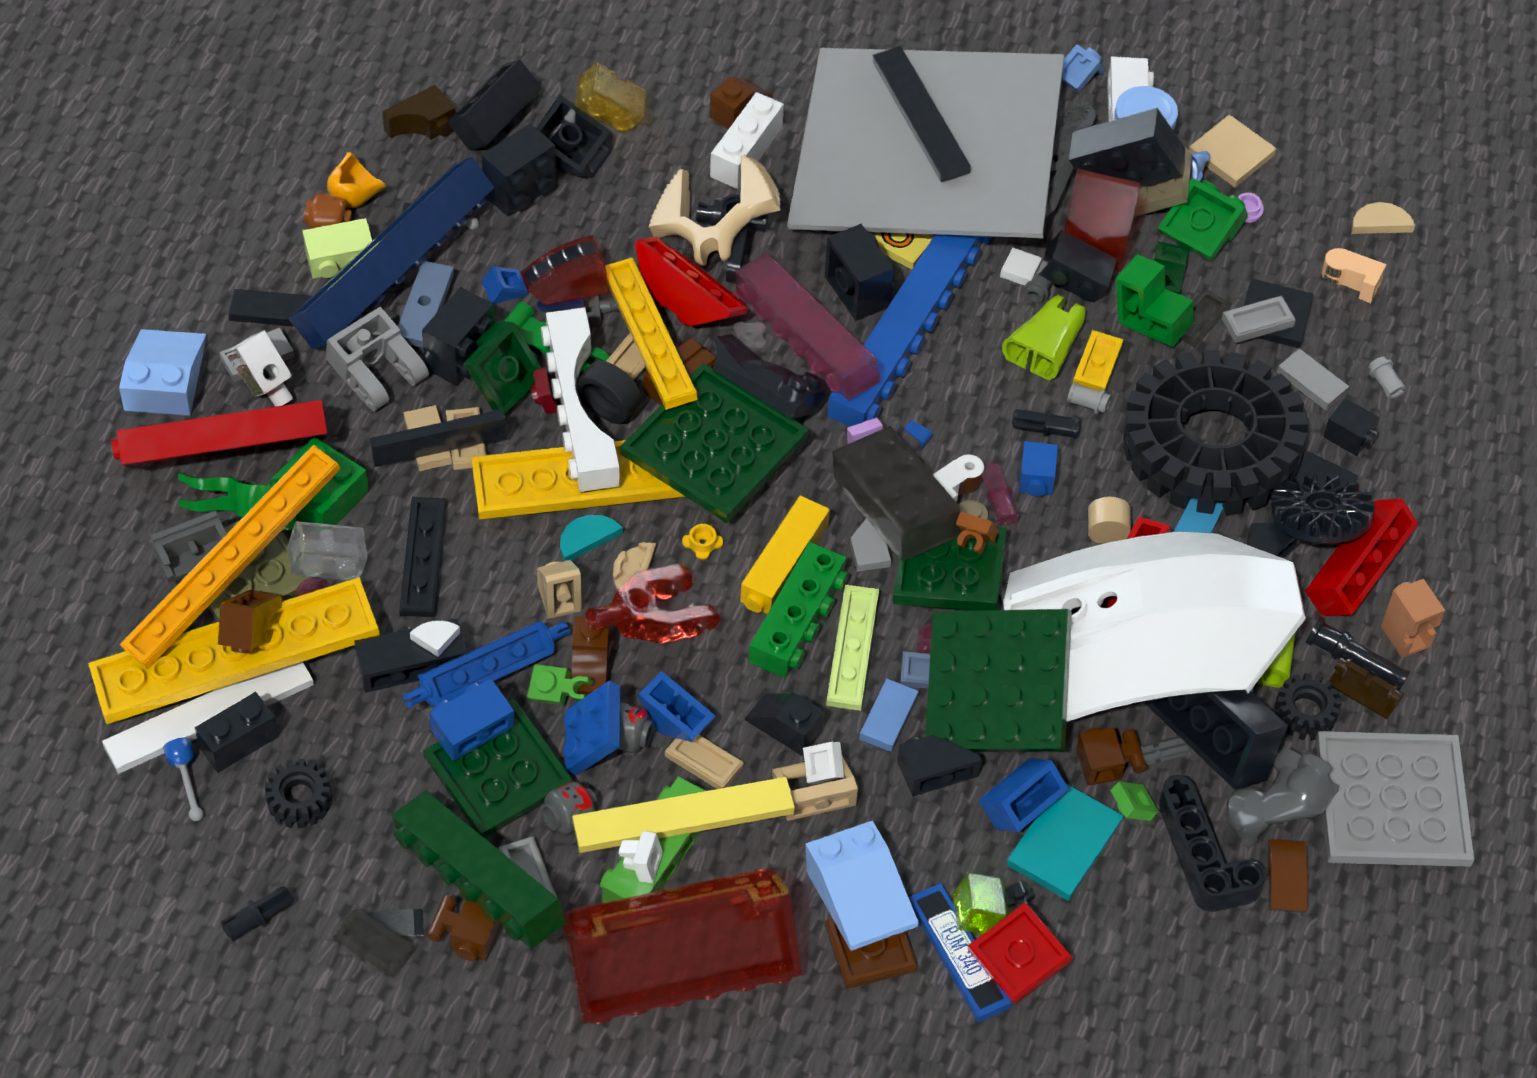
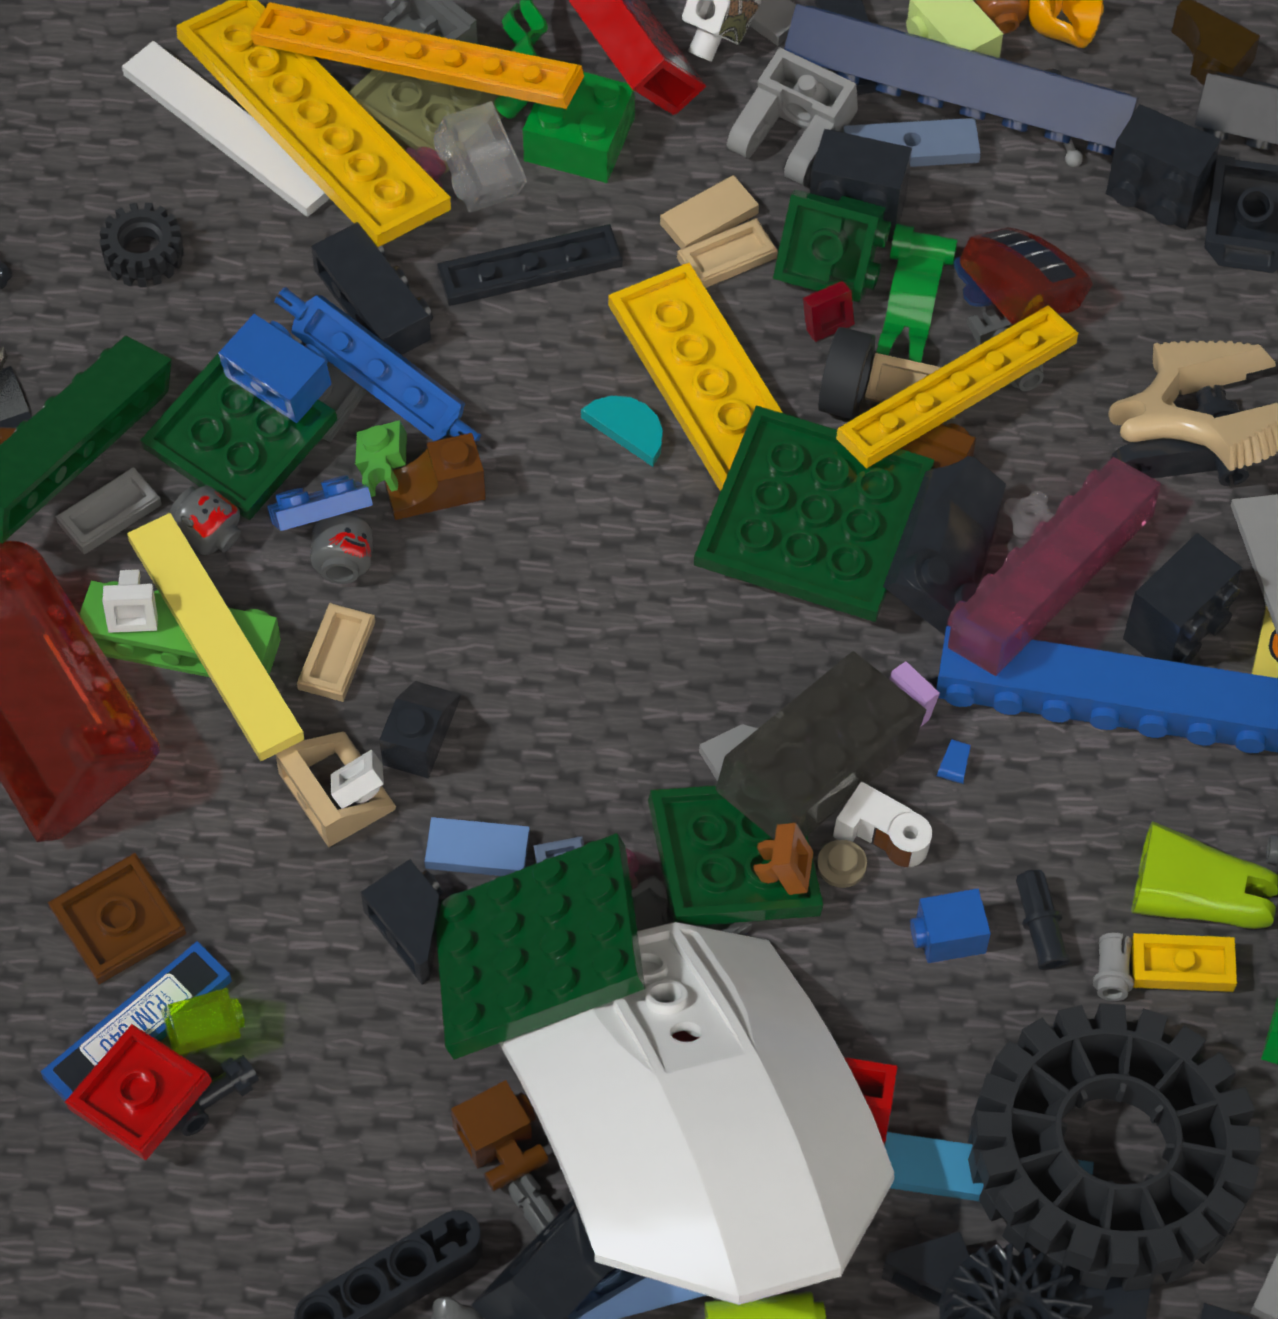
camera: 75 degrees right, 5 degrees up
(179, 754) = (158, 118): hinge -> none
(236, 732) = (200, 156): black brick -> none
(247, 619) = (334, 98): reddish brown arch -> none
(435, 635) = (386, 297): white tile -> none
(438, 438) = (695, 214): black tile -> none
(503, 284) = (988, 216): blue slope -> none
(560, 588) = (523, 409): tan slope -> none
(592, 451) = (893, 305): white arch -> none
(632, 561) = (596, 490): tan tile -> none
(638, 616) = (548, 496): clear red piece -> none
(674, 709) = (381, 586): blue slope -> none
(683, 285) = (1066, 418): red wedge -> none
(699, 533) = (667, 543): yellow plate -> none
(765, 580) = (676, 651): yellow brick -> none
(797, 610) = (595, 691): green brick -> none
(852, 647) = (571, 776): yellowish green tile -> none
(860, 885) = (185, 873): light blue slope -> none
(999, 494) = (892, 890): clear pink axle -> none
(1023, 795) = (386, 1036): blue brick -> none
(1065, 842) = (350, 1116): teal tile -> none
(1109, 520) = (897, 1039): tan piece -> none
(1134, 801) = (433, 1186): bright green plate -> none

